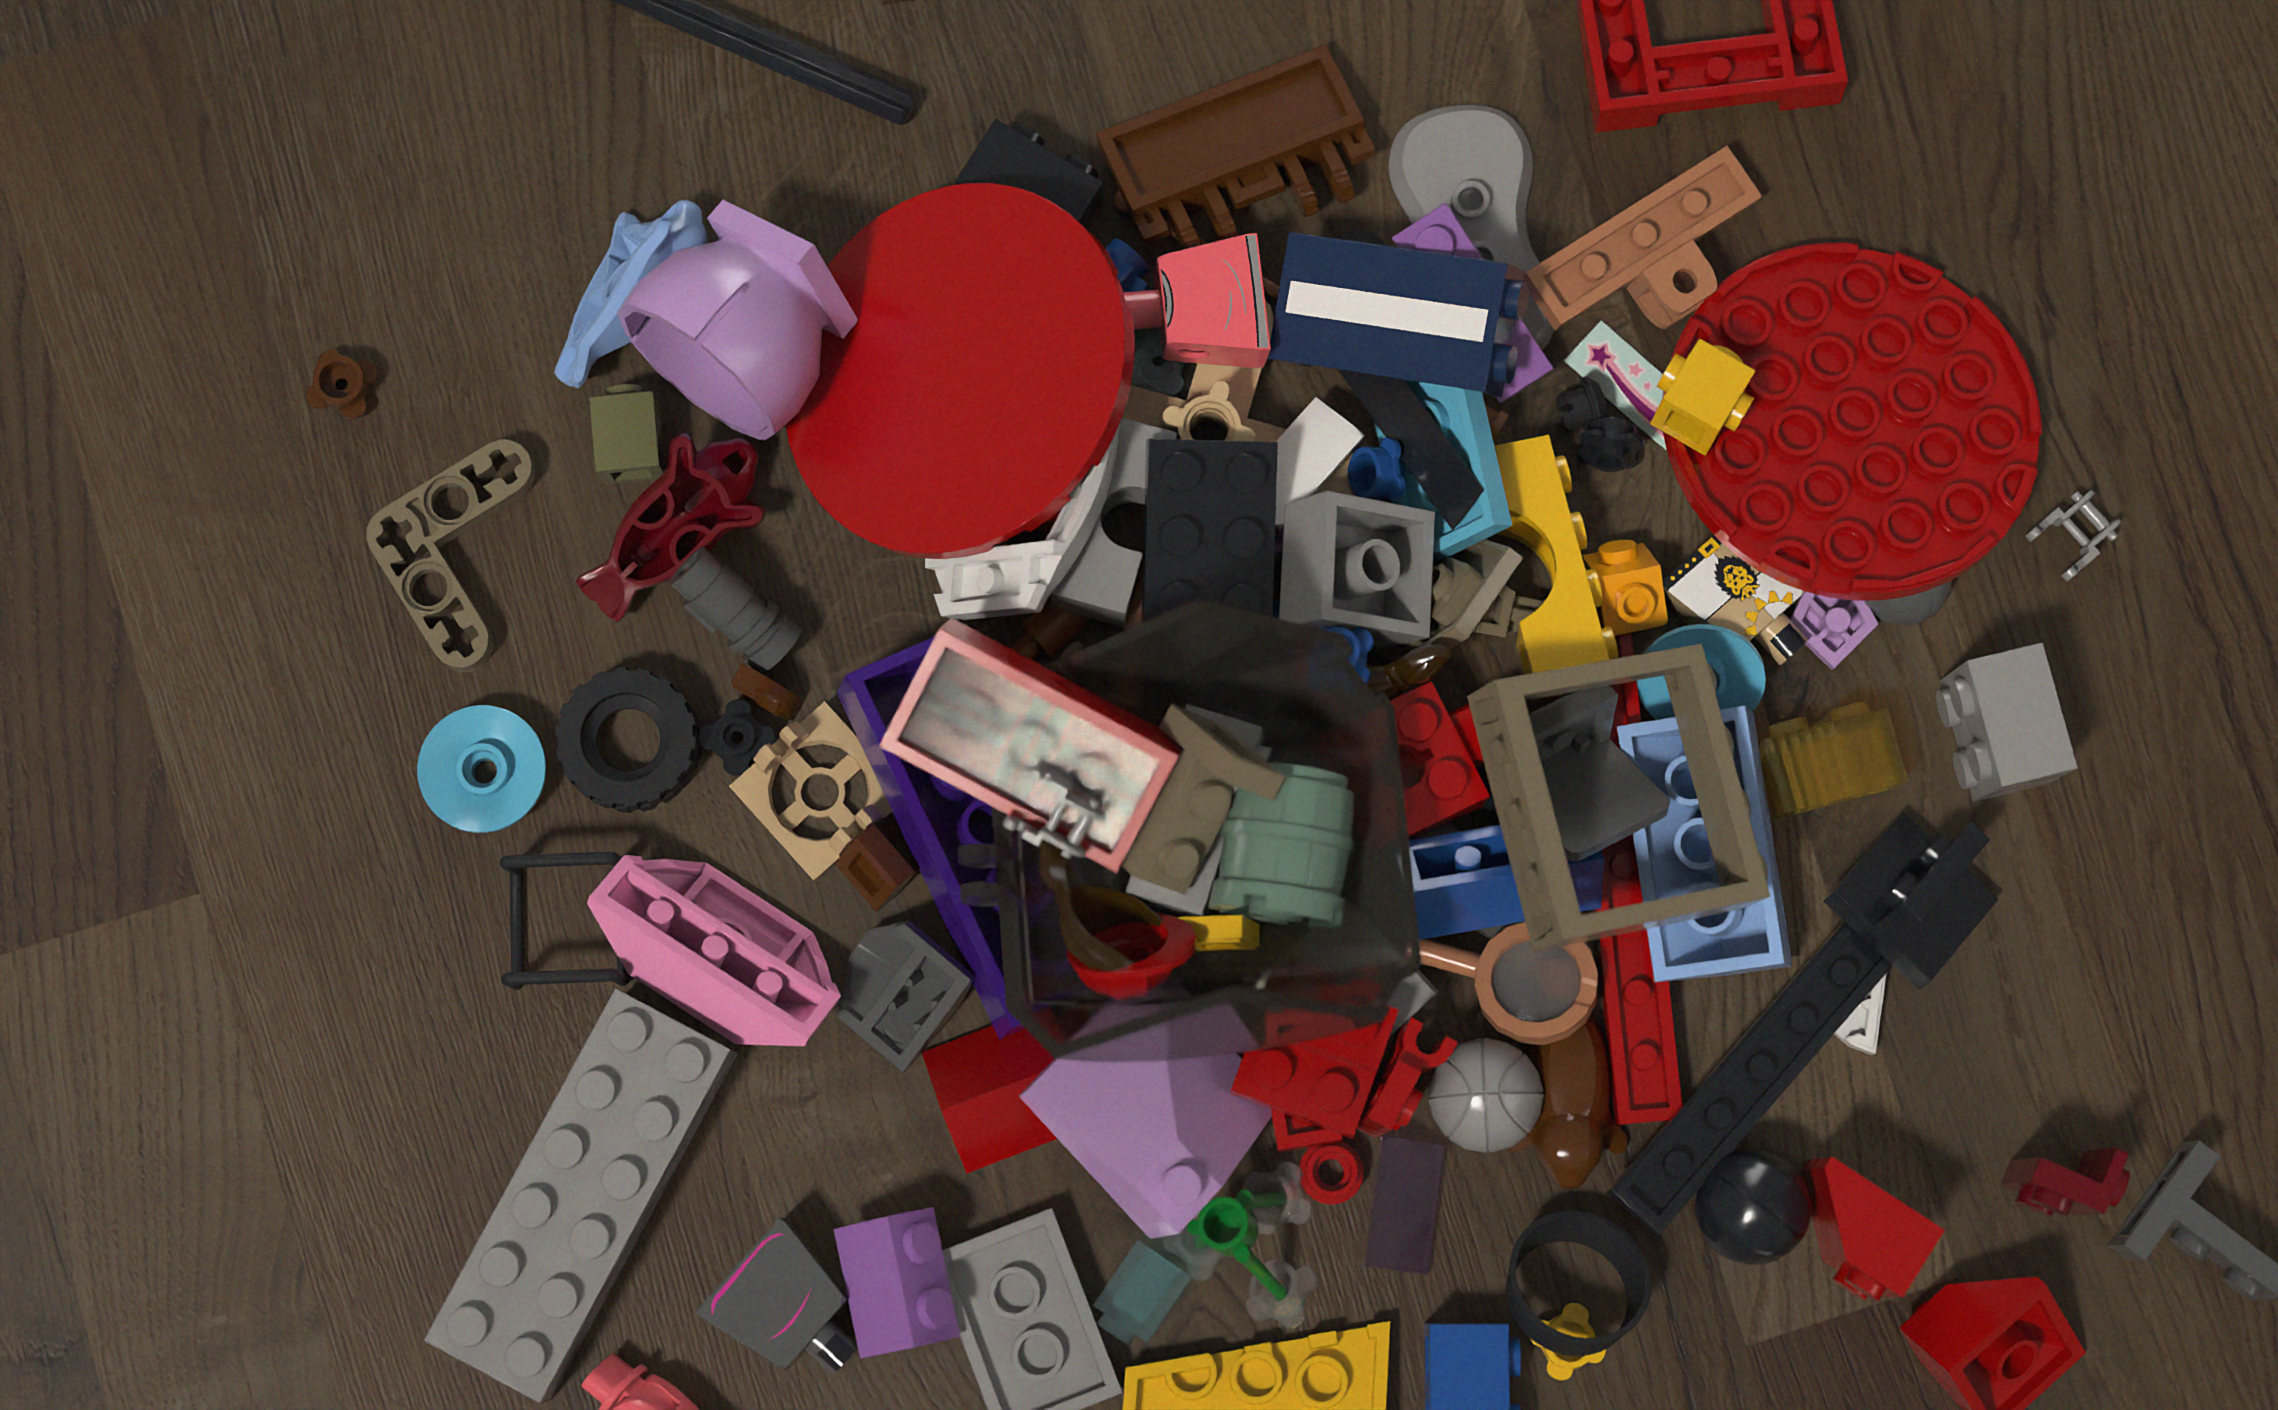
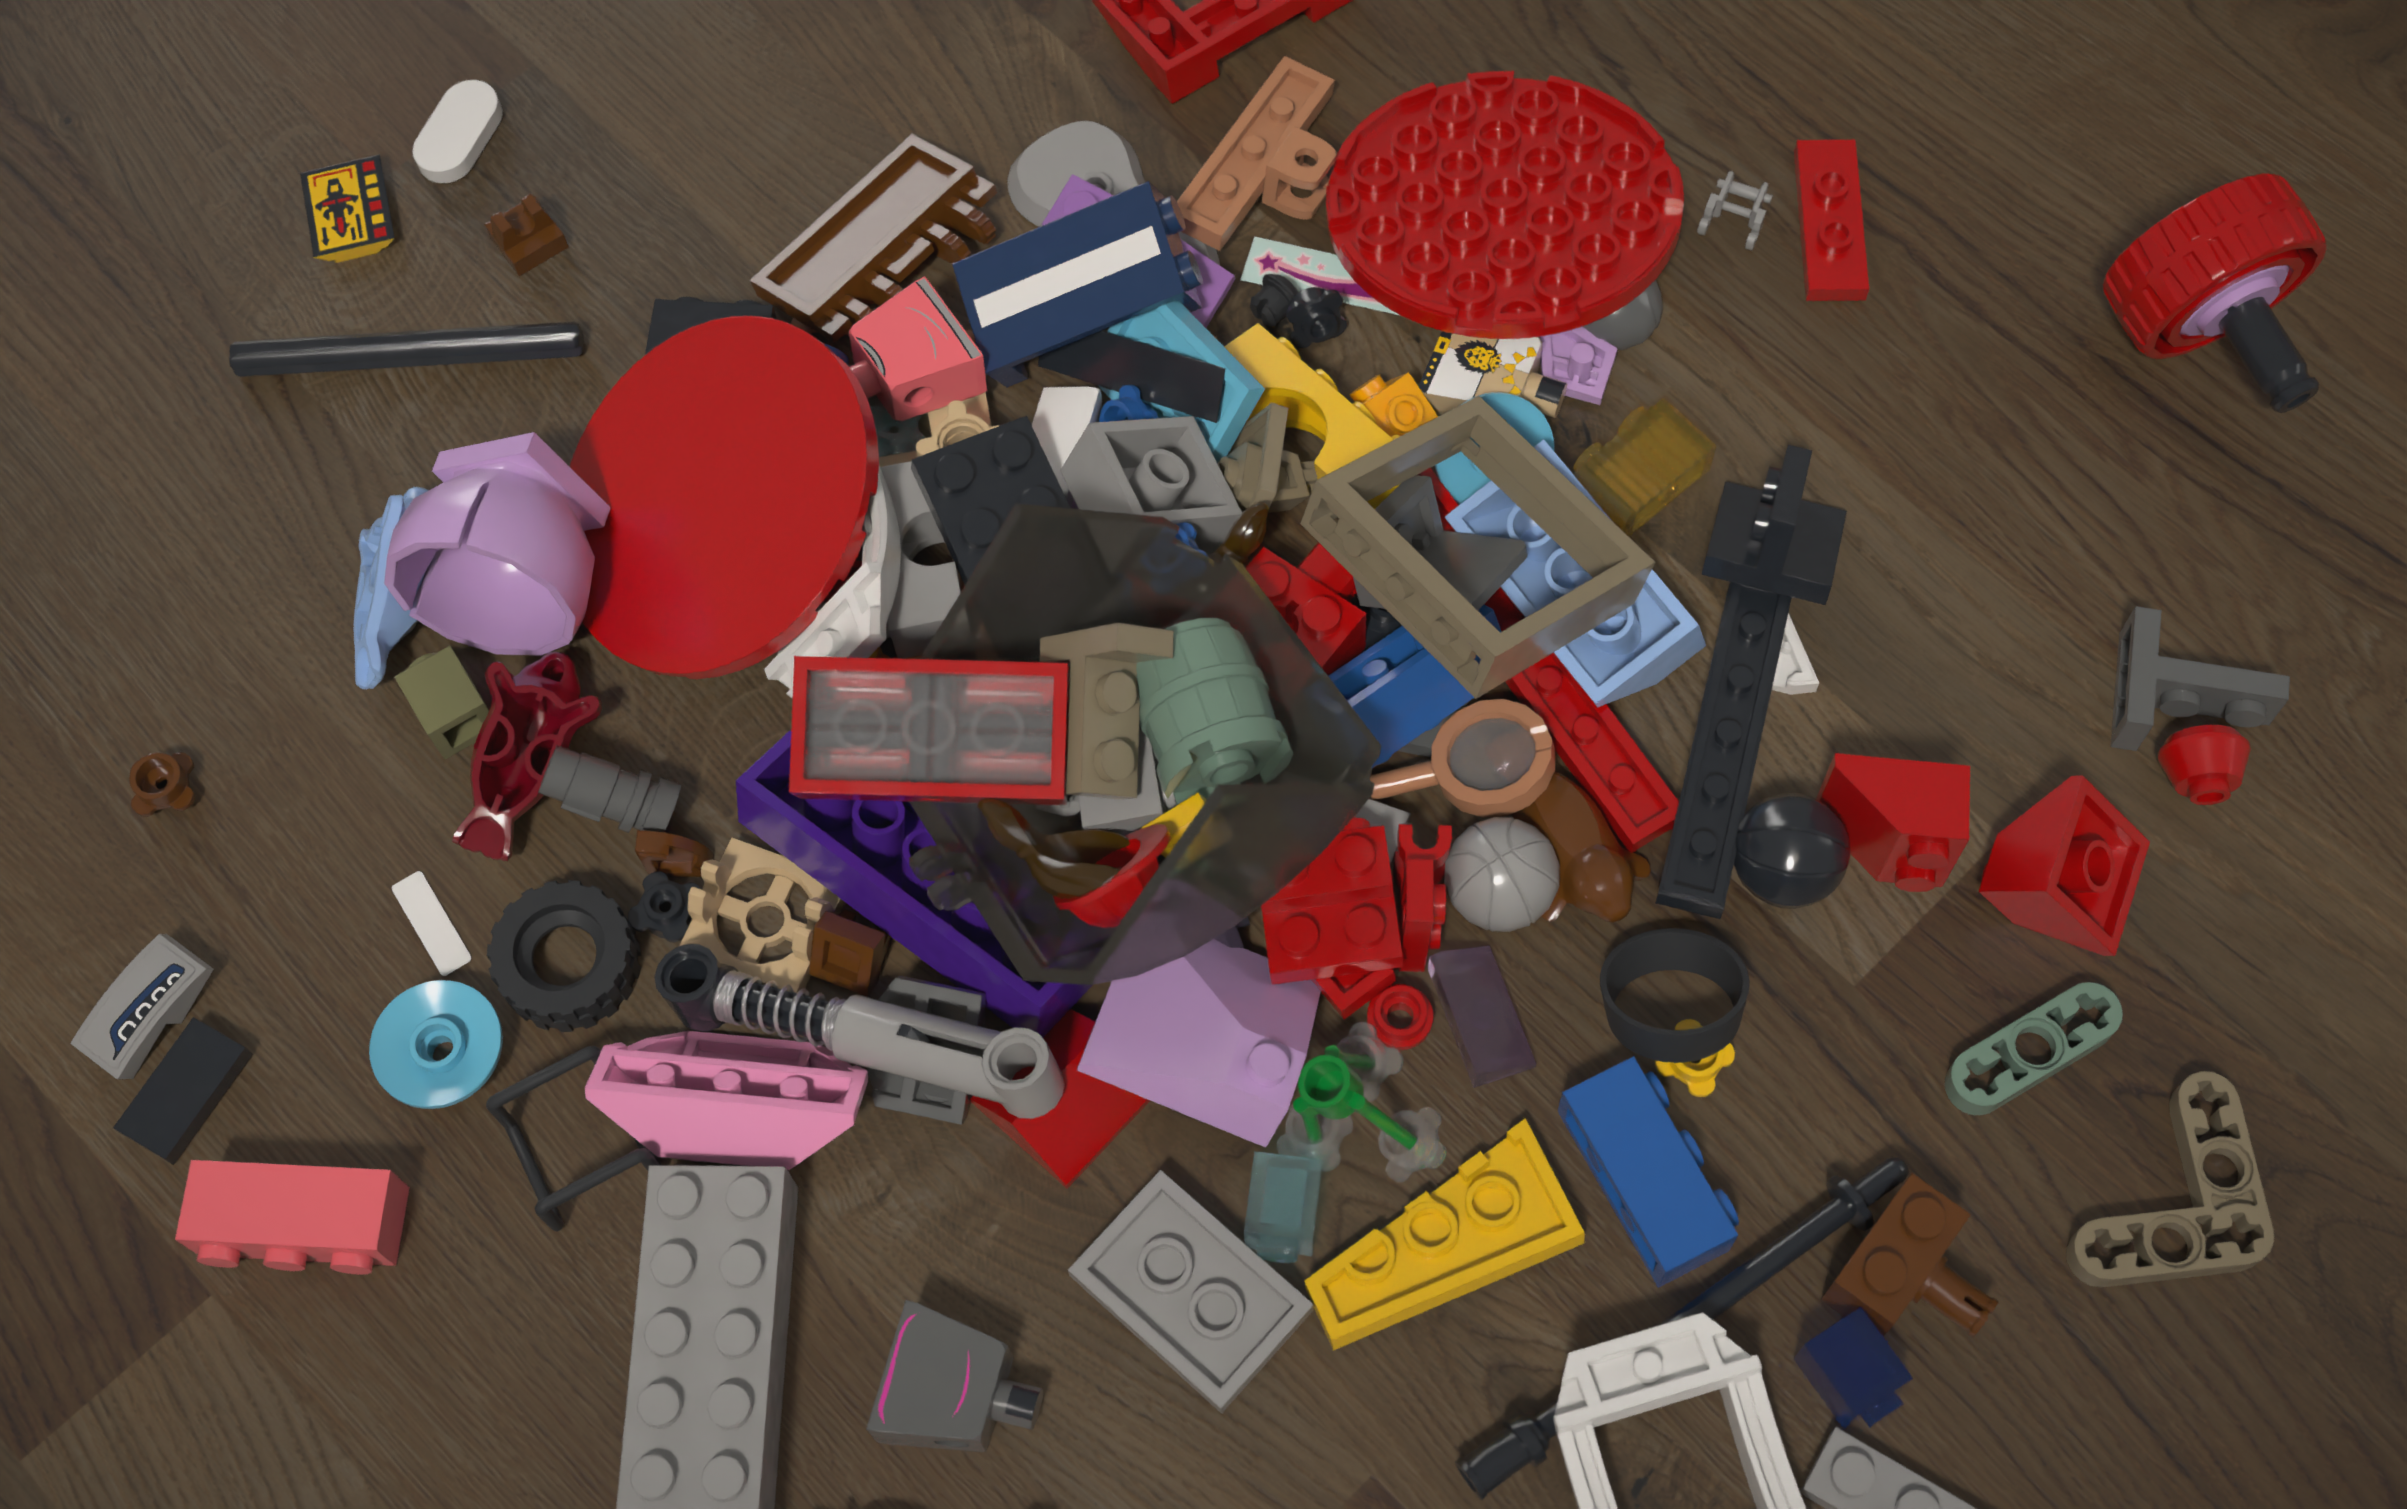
camera: 20 degrees left, 15 degrees down
(241, 597) = (144, 998): none -> light grey slope
(247, 695) = (183, 1091): none -> black tile
(295, 866) = (292, 1215): none -> coral brick
(433, 532) = (300, 869): dark tan beam -> none
(526, 641) = (431, 923): none -> white sticker
(853, 960) = (867, 1032): none -> piece
(896, 1282) = (1048, 1307): medium lavender brick -> none
(1087, 810) = (1010, 765): light grey piece -> none
(1703, 395) = (1370, 222): yellow brick -> none
(2005, 723) = (1770, 361): light grey brick -> none
(2053, 1188) = (2047, 698): dark red bracket -> none
(2160, 588) = (1831, 220): none -> red plate
(2175, 1313) = (2205, 762): none -> red cone

